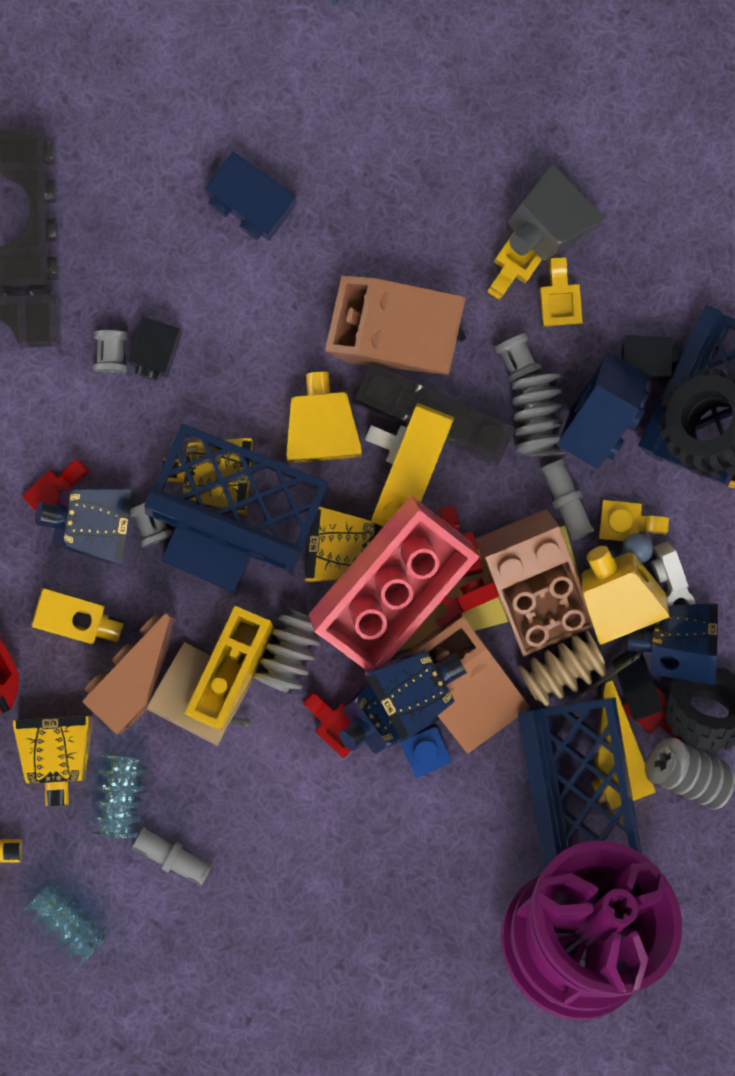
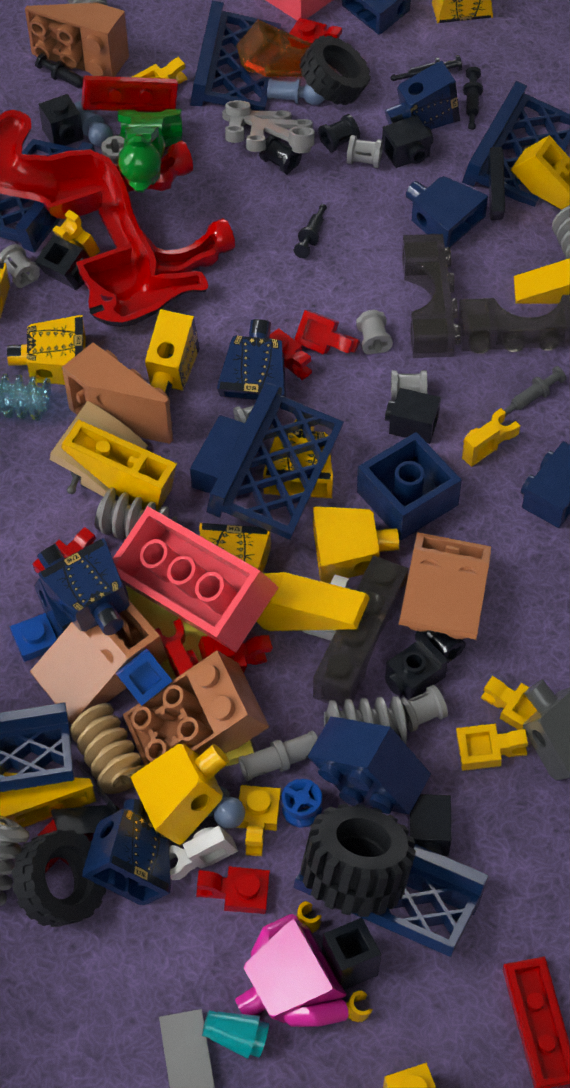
camera: 90 degrees right, 30 degrees down
(32, 387) = (372, 326): none -> light grey bush
(33, 448) = (320, 333): none -> red plate
(119, 216) = (539, 388): none -> dark grey piece
(191, 276) = (485, 440): none -> yellow plate
(256, 357) = (408, 485): none -> dark blue brick
(482, 379) = (413, 681): none -> black brick
(501, 632) = (144, 677): none -> blue plate
(623, 473) = (302, 793): none -> blue wheel
(705, 536) = (242, 889): none -> red plate

